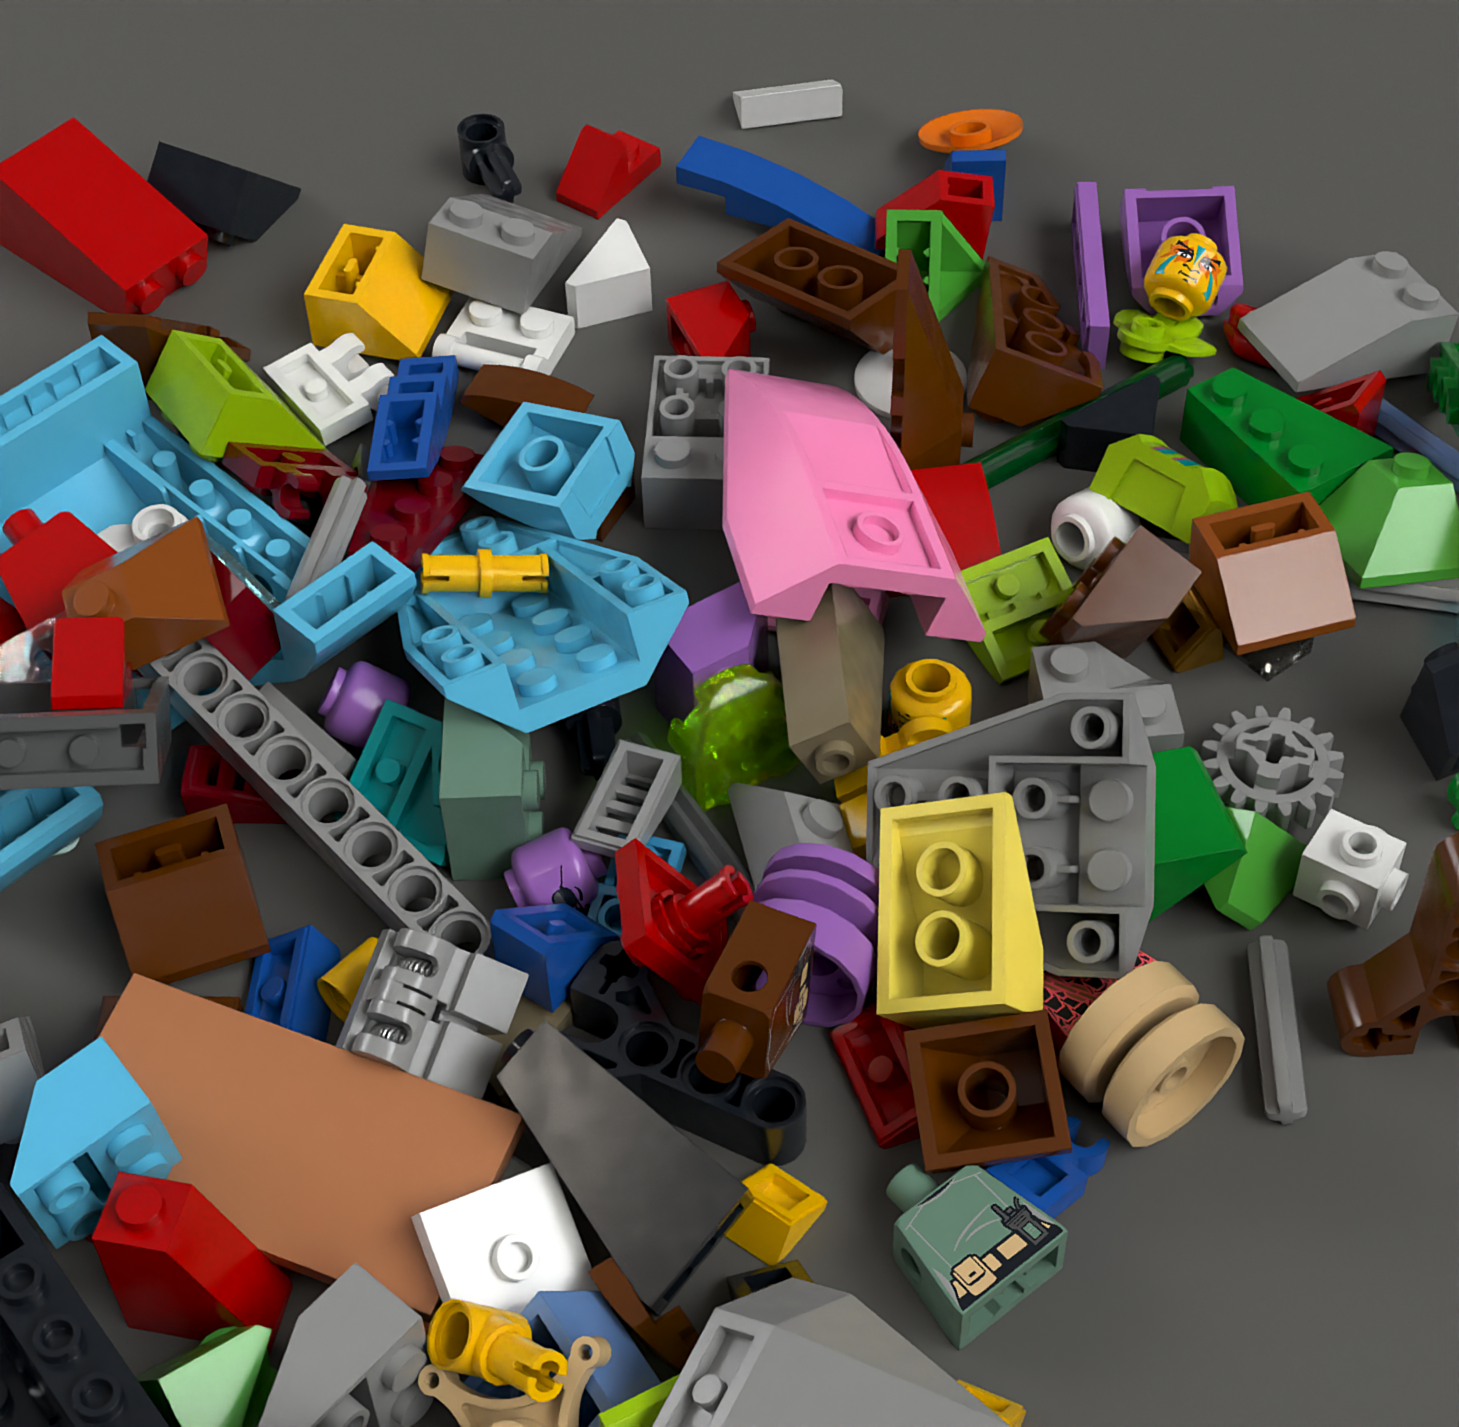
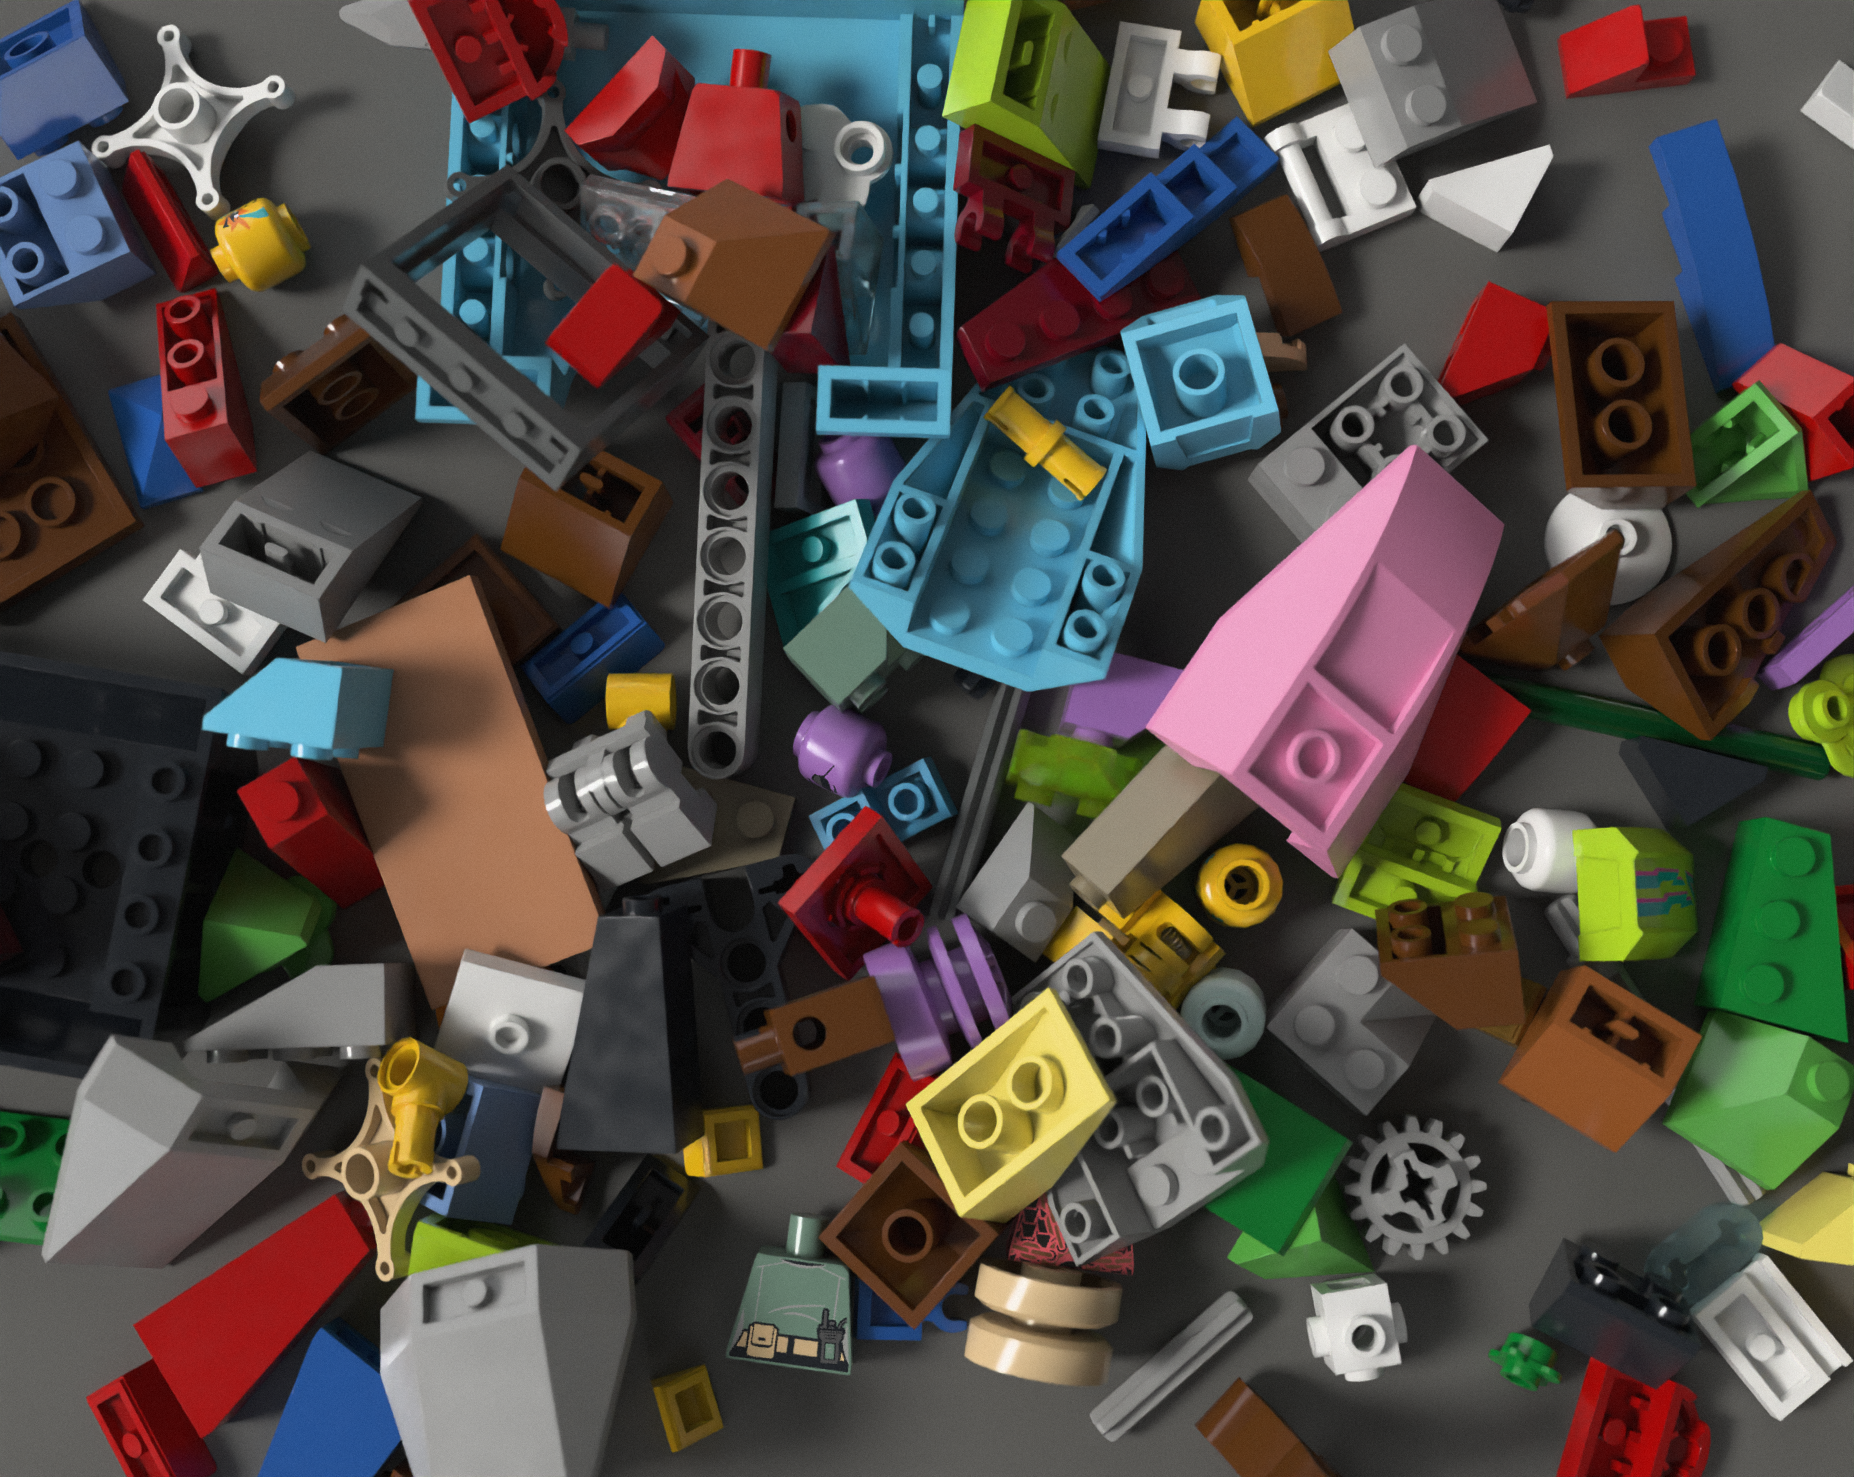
camera: 50 degrees right, 35 degrees up
(331, 532) = (949, 307): light grey axle -> none
(548, 945) = (768, 822): blue slope -> none
(626, 765) = (981, 737): light grey slope -> none

